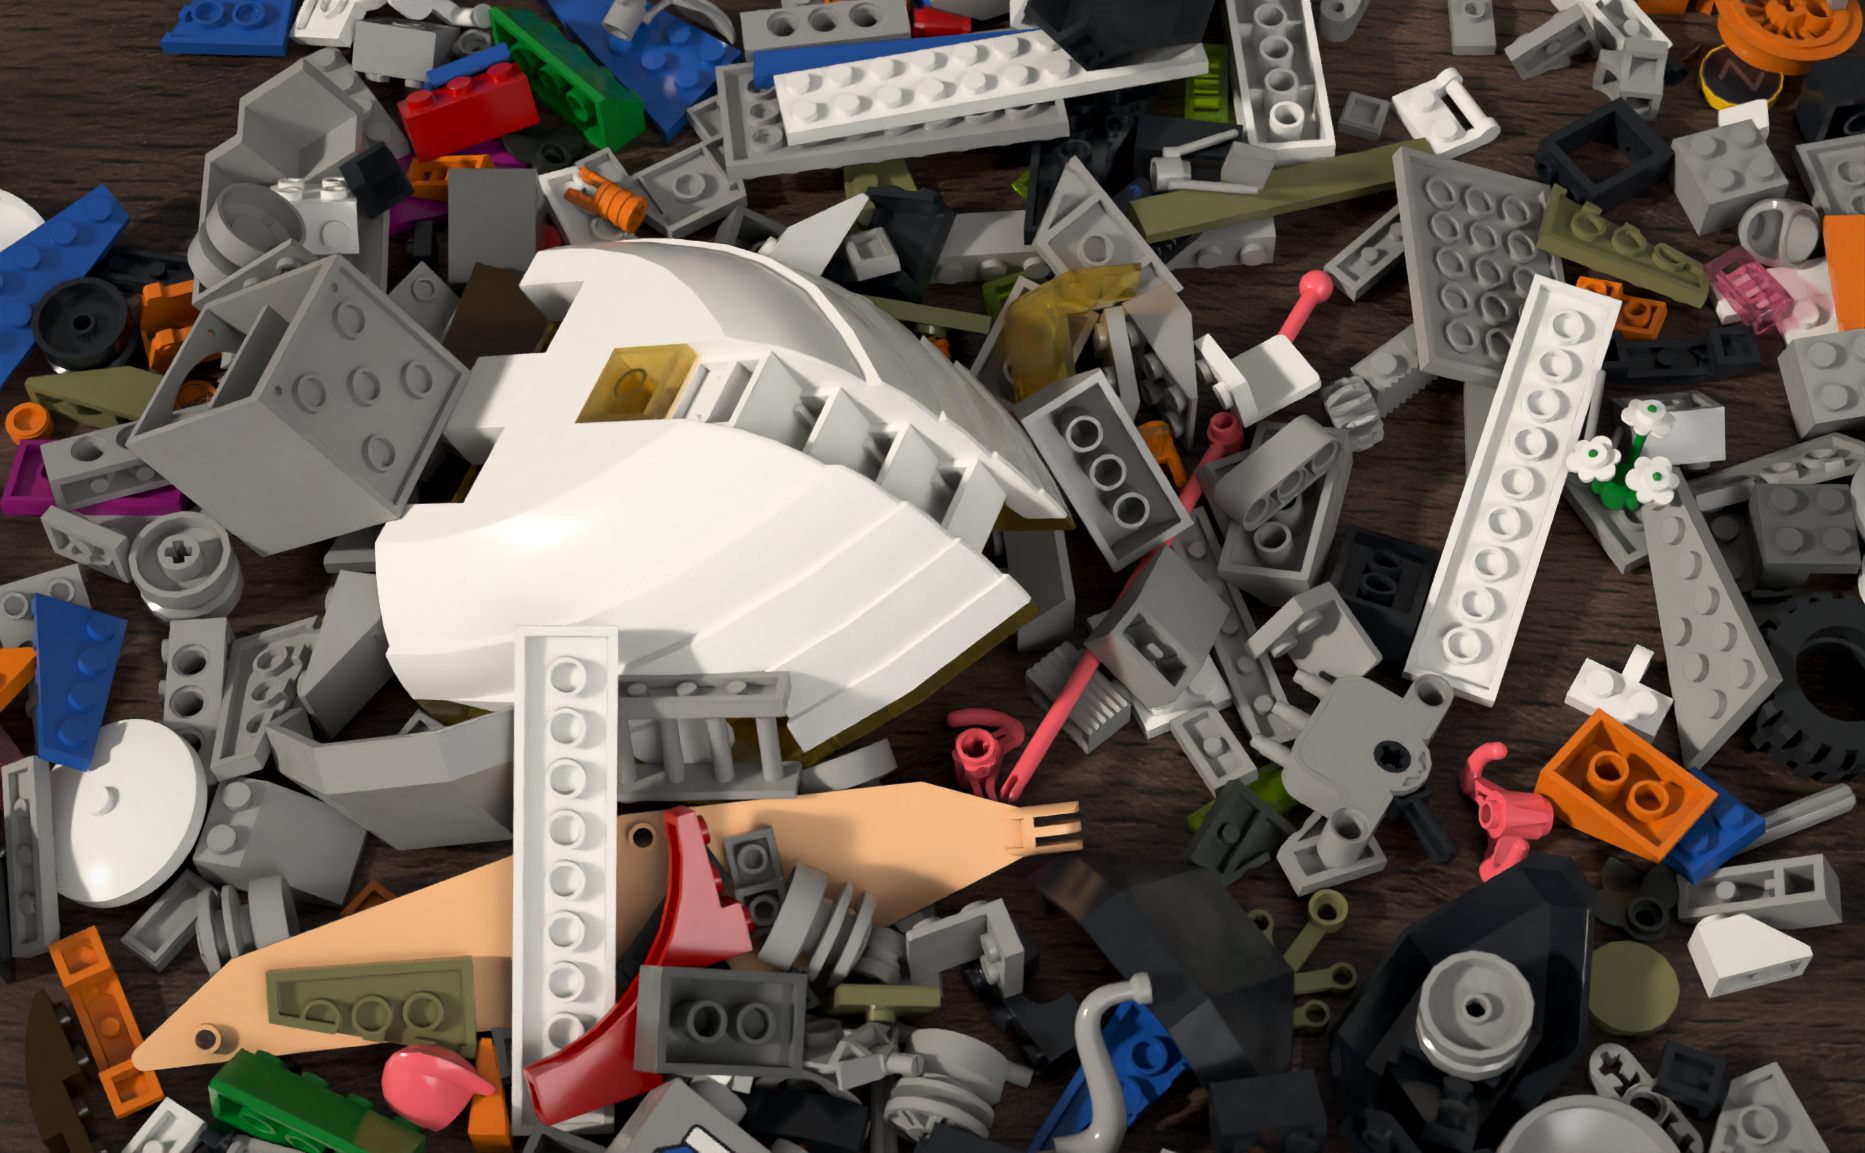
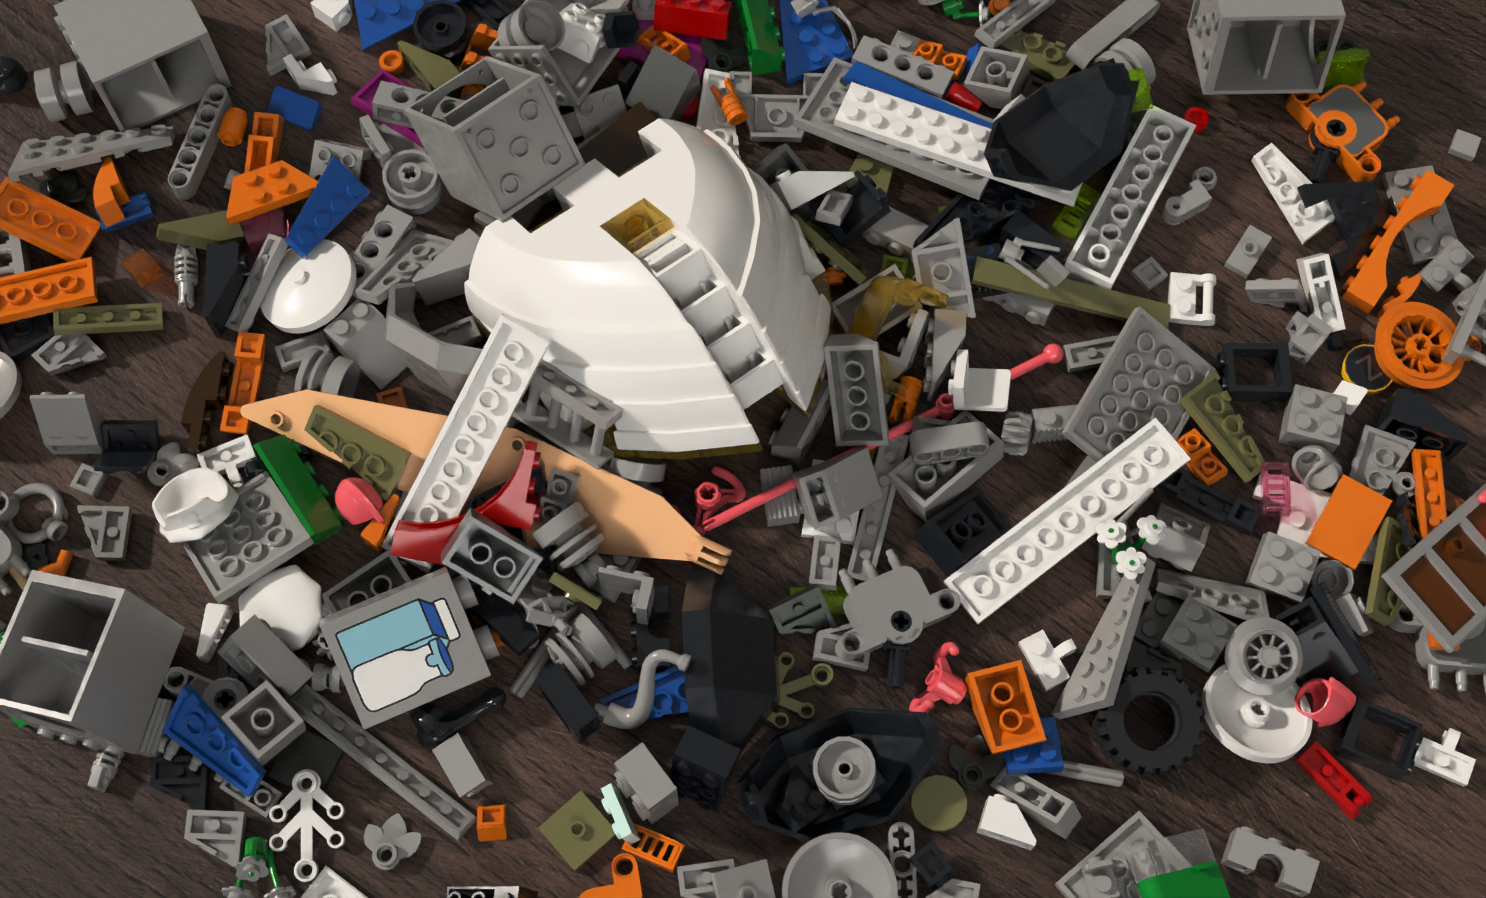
camera: 30 degrees right, 10 degrees up
(1317, 635) = (913, 538): light grey bracket -> none

